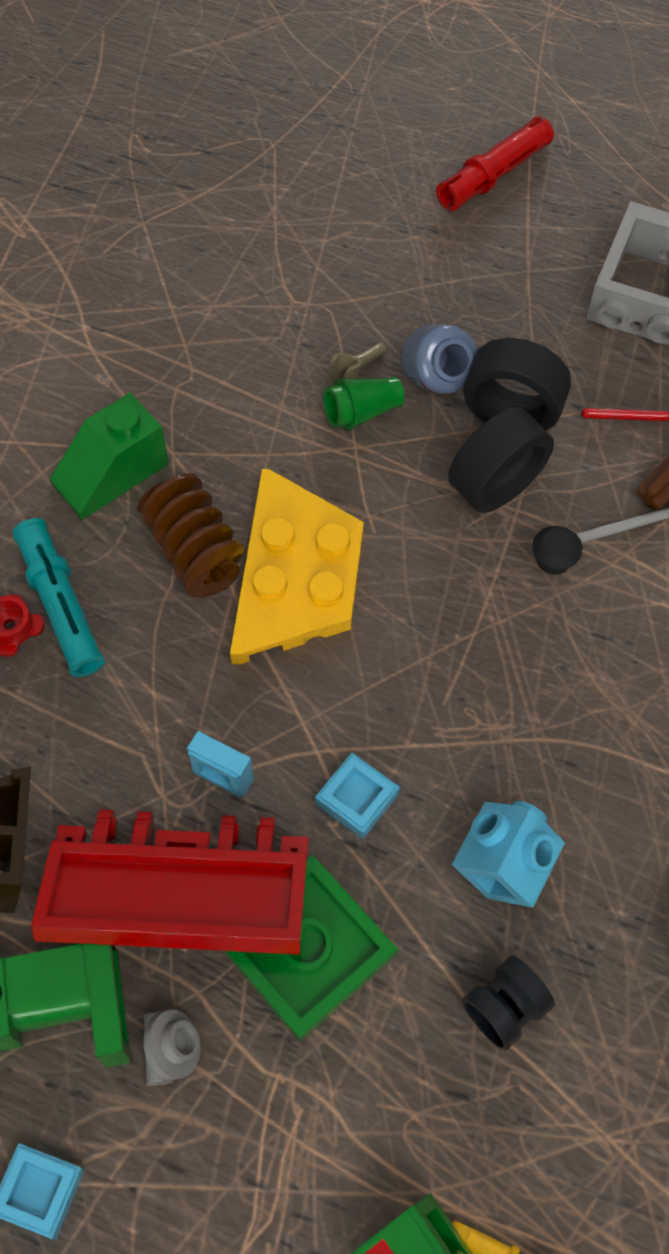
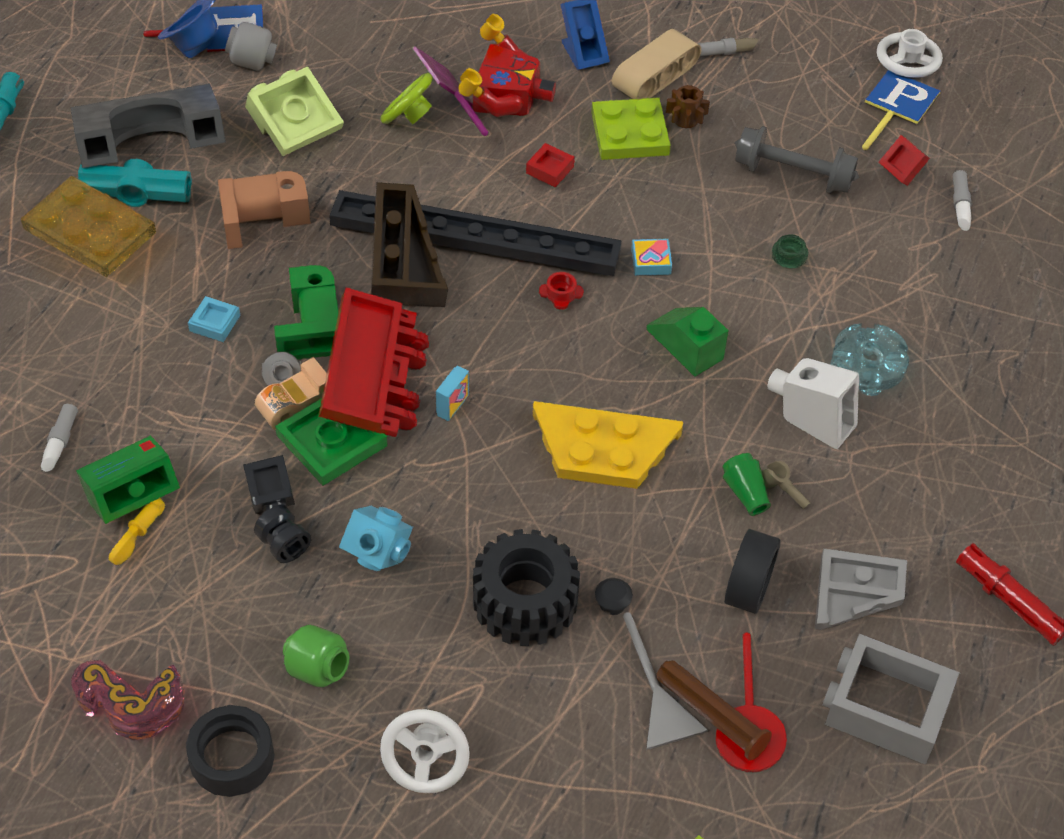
camera: 90 degrees right, 10 degrees down
(58, 594) = (593, 307): teal pin -> none
(150, 287) = (882, 341): none -> clear light blue plate
(192, 534) = (622, 374): reddish brown piece -> none
(228, 1013) = (292, 395): none -> light nougat leg
(235, 307) = (819, 399): none -> white torso
(357, 795) = (430, 471): medium azure tile -> none
(421, 1033) = (268, 484): none -> black bracket
(438, 357) = (787, 522): sand blue head -> none
(500, 459) = (682, 554): black tyre -> none
(504, 298) = (857, 586): none -> light grey wing
(575, 607) = (519, 615): none -> black tyre

